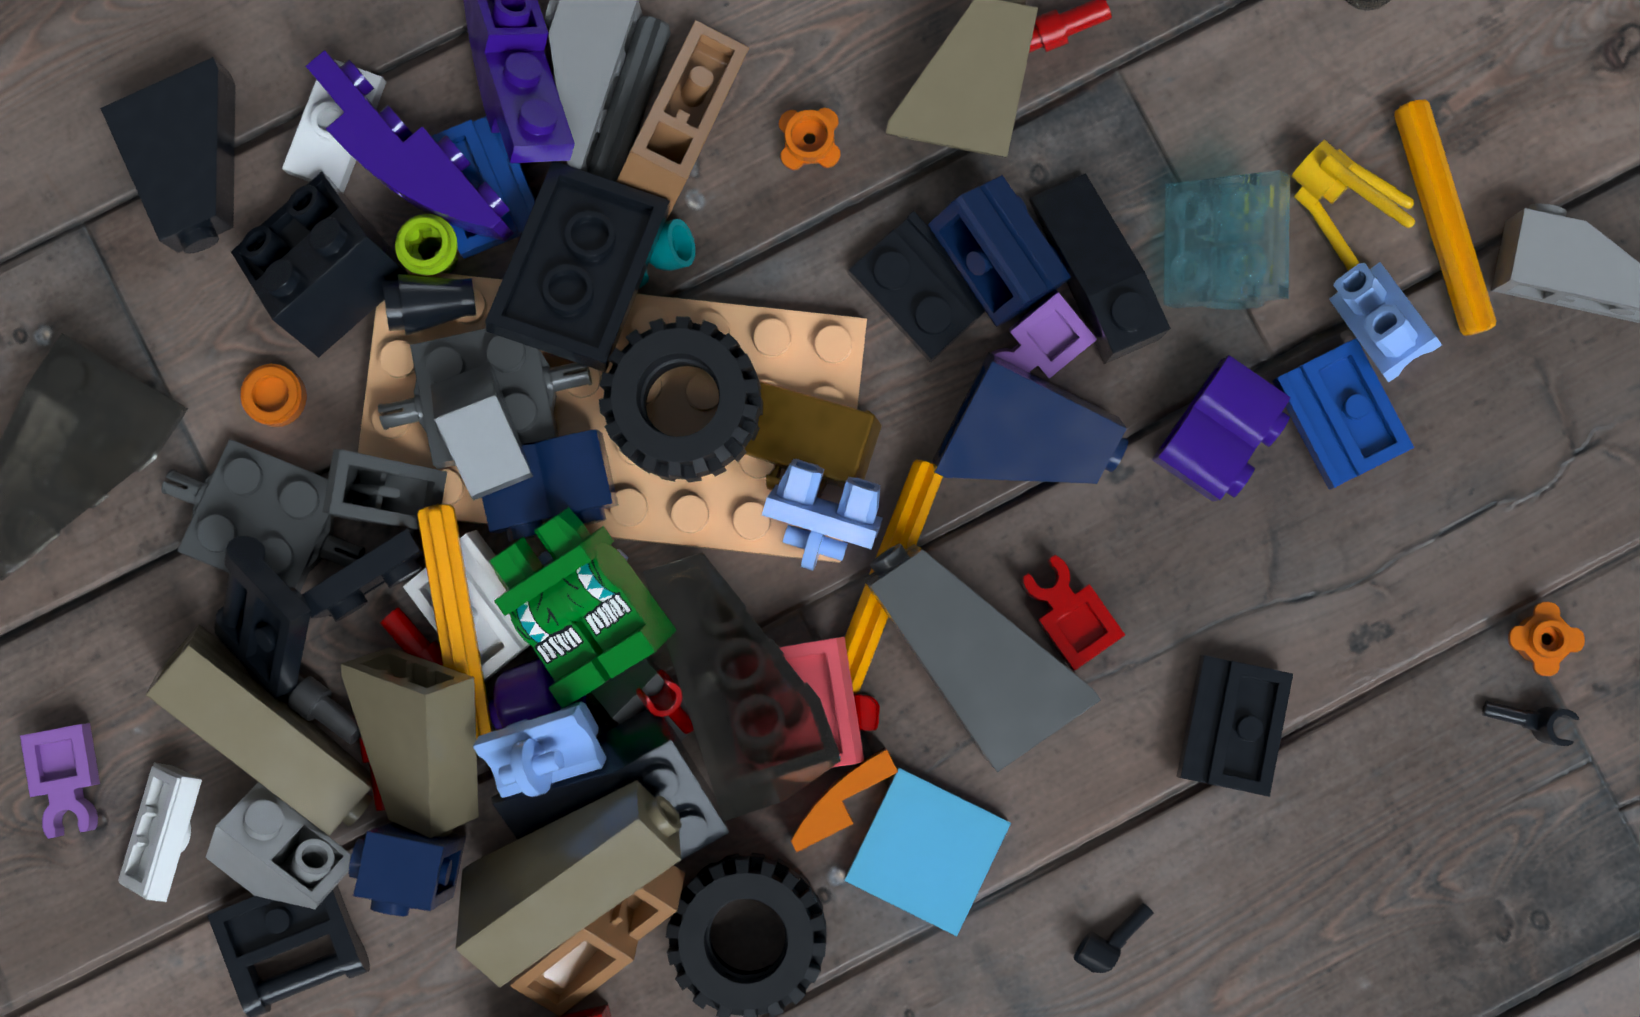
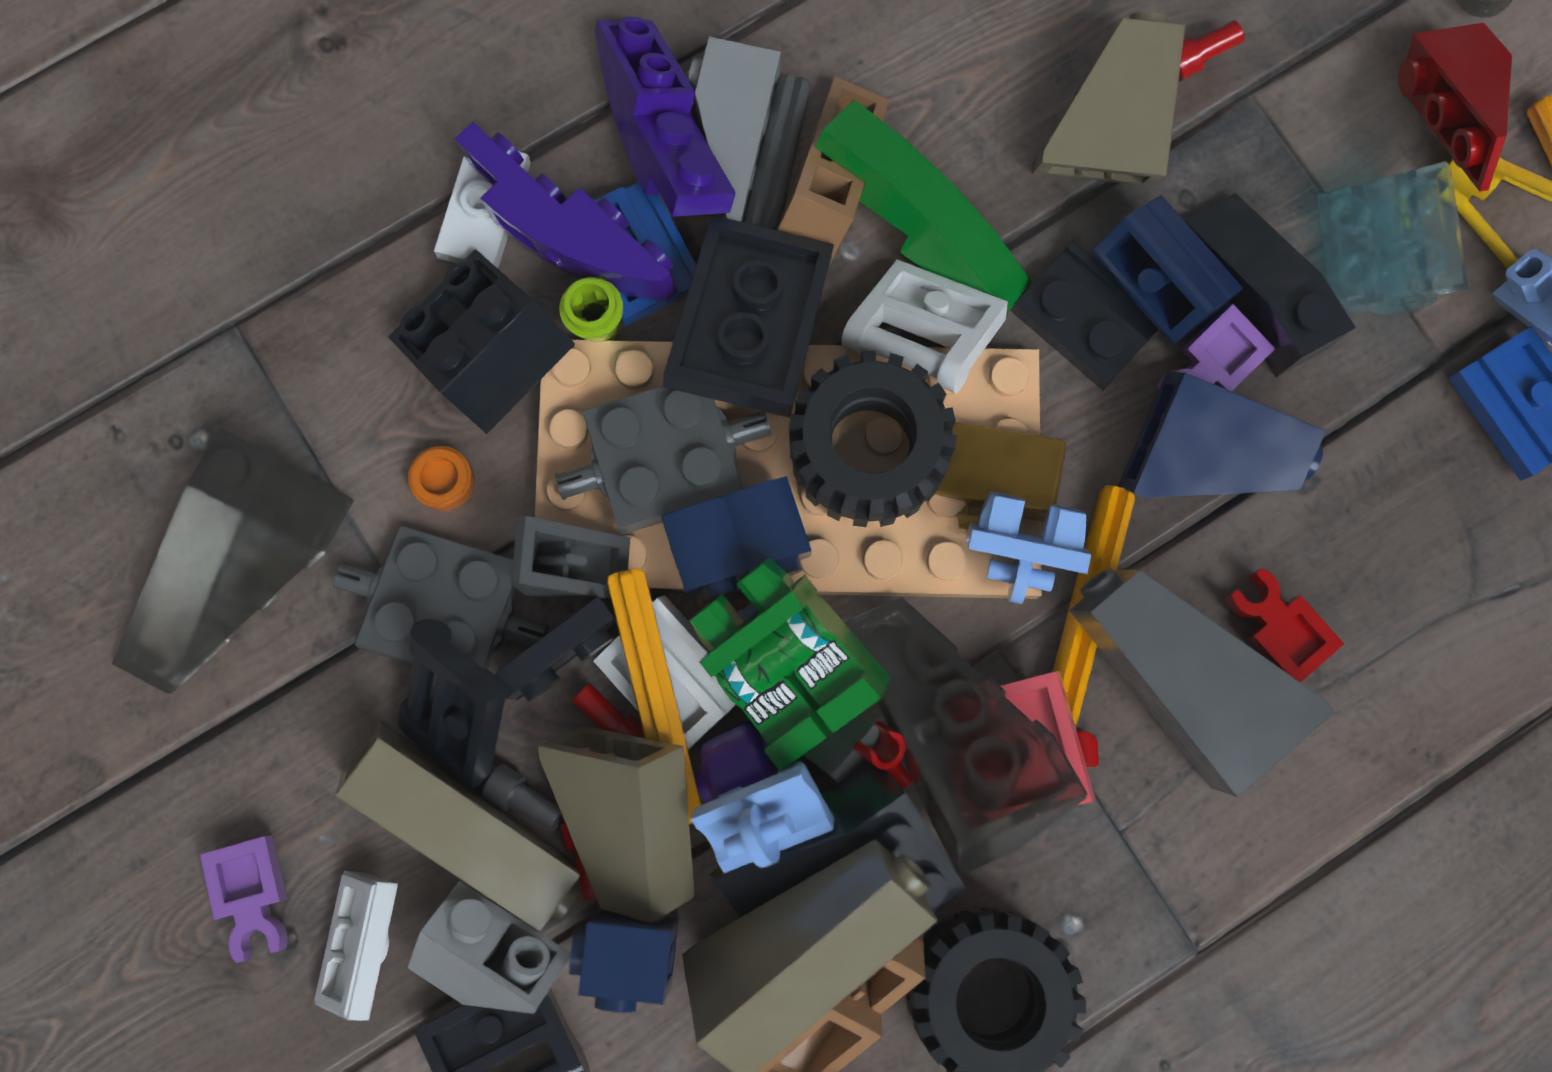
camera: 15 degrees left, 5 degrees down
(181, 153) = (330, 242): black slope -> none
(425, 302) = (593, 366): black cone -> none
(479, 431) = (670, 487): slope -> none
(674, 247) = (837, 297): teal hinge -> none
(764, 164) = (919, 200): none -> green slope
(764, 271) = (933, 310): none -> white plate
(818, 123) = (972, 168): orange plate -> none
(829, 811) = (1062, 855): orange slope -> none
(927, 851) = (1165, 889): medium azure tile -> none
(1101, 954) = (1365, 981): black hand -> none
(1222, 430) = (1411, 429): dark purple brick -> none
(1234, 725) = (1466, 727): black plate -> none
(1317, 91) = (1462, 91): none -> red slope

